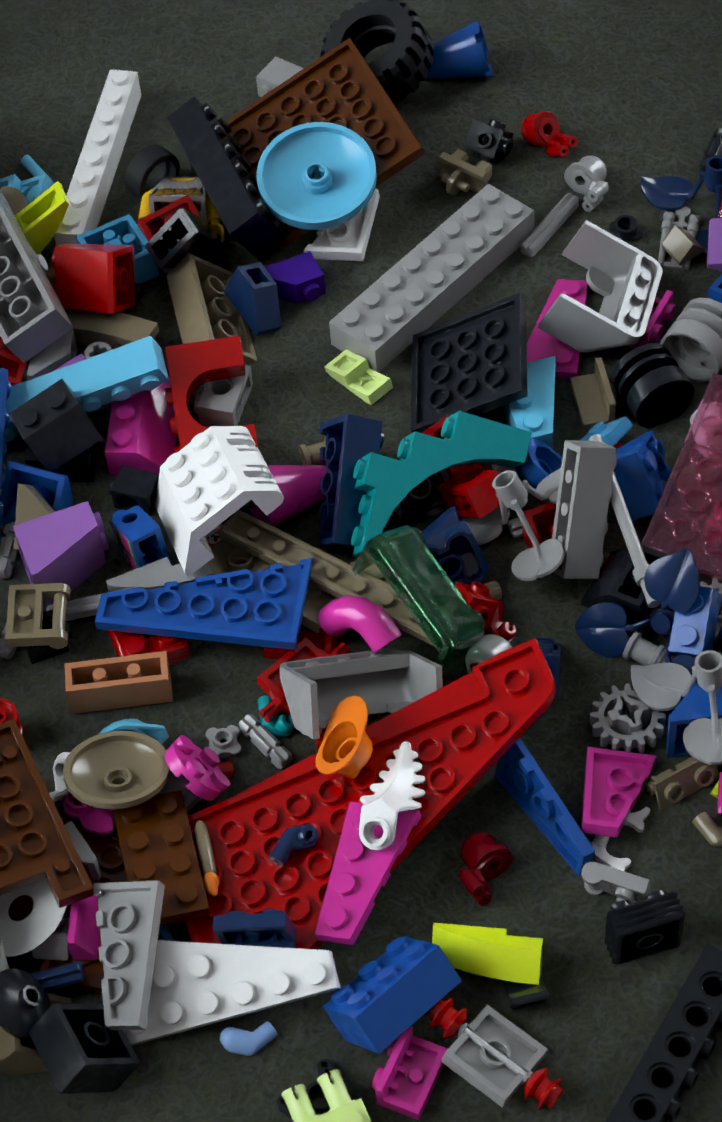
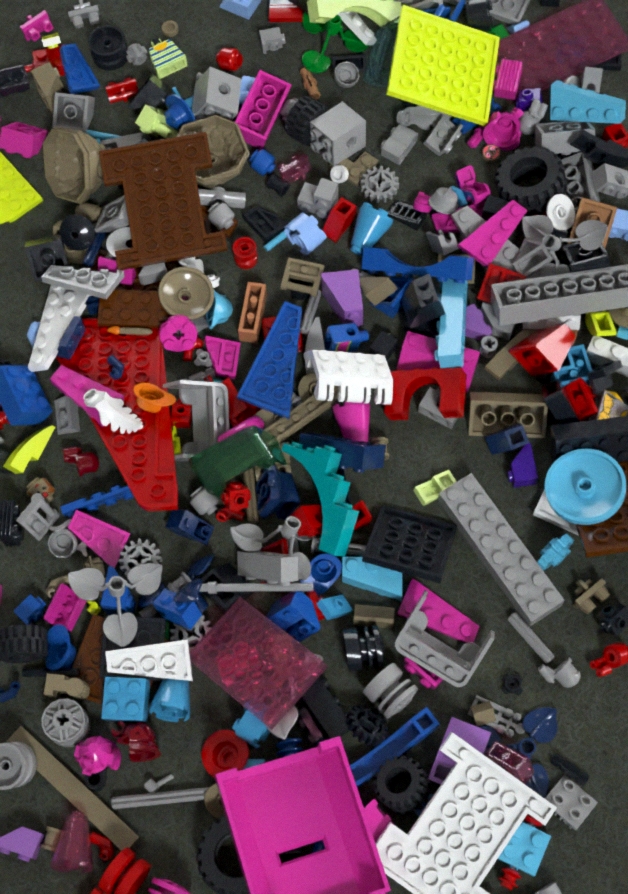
camera: 105 degrees right, 15 degrees up
(119, 201) = (601, 378): none -> black panel
(214, 708) = (223, 355): none -> dark pink wing
(410, 921) = (66, 415): none -> light grey slope
(417, 207) = (555, 551): none -> medium azure gear
(562, 910) = (41, 486): none -> dark tan head
(643, 832) = (59, 540): none -> light grey hair

